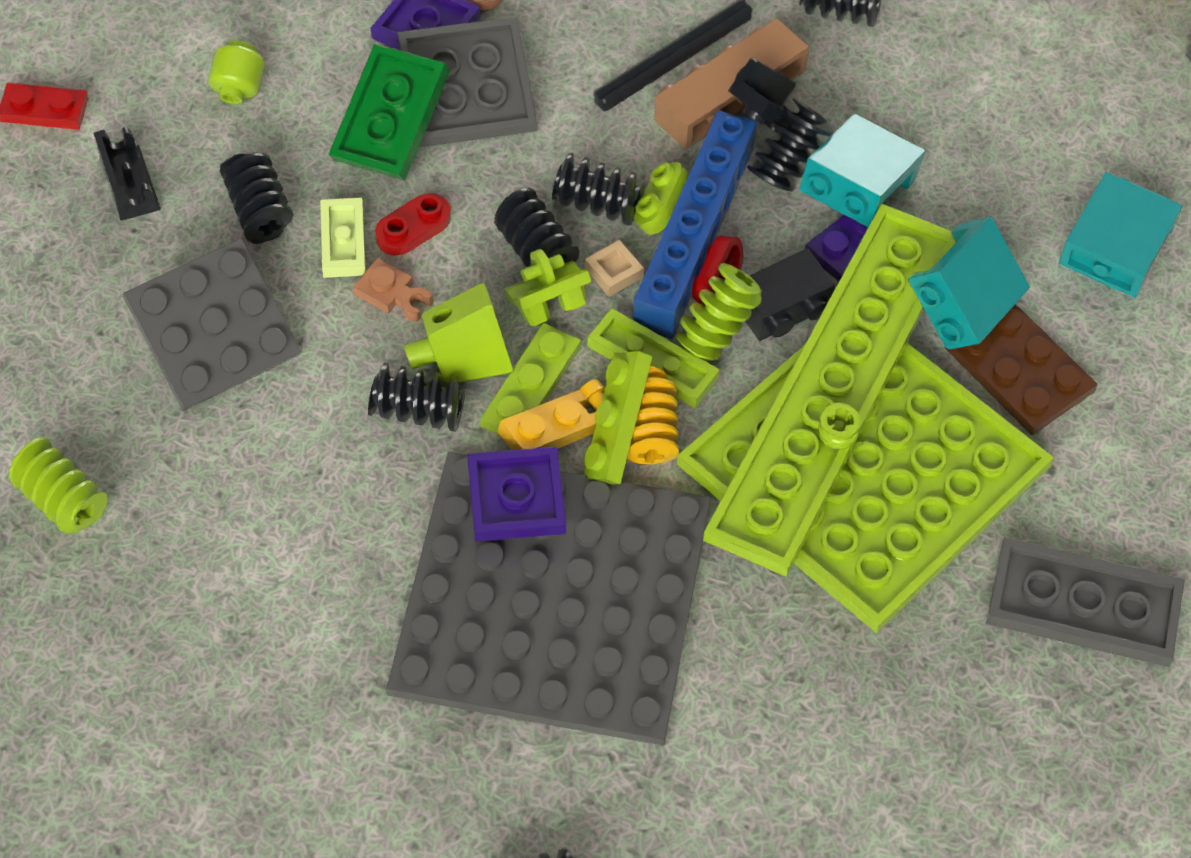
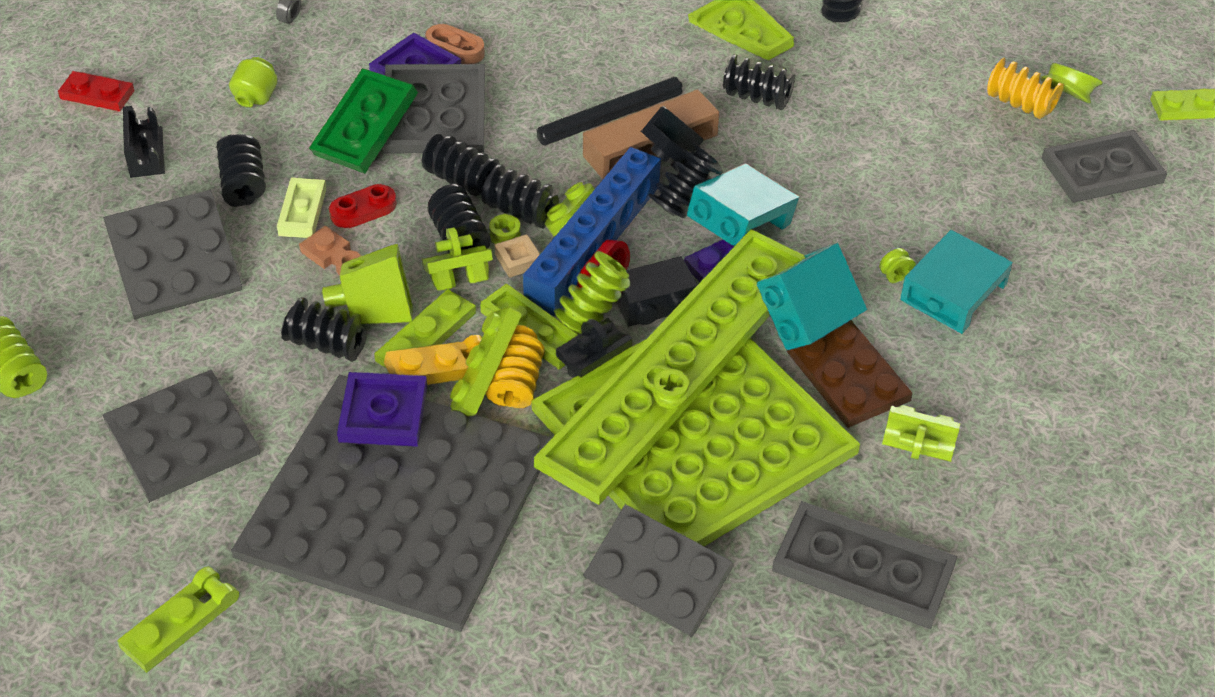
camera: 10 degrees right, 10 degrees down
(284, 553) = (180, 435): none -> dark grey plate
(348, 780) = (178, 619): none -> lime plate
(515, 157) = (457, 163): none -> black piece
(595, 226) = (501, 222): none -> lime bush
(732, 380) = (593, 347): none -> black hips
(867, 644) = (659, 570): none -> dark grey plate
(1050, 222) = (896, 265): none -> lime bush
(1117, 434) = (921, 433): none -> lime hips

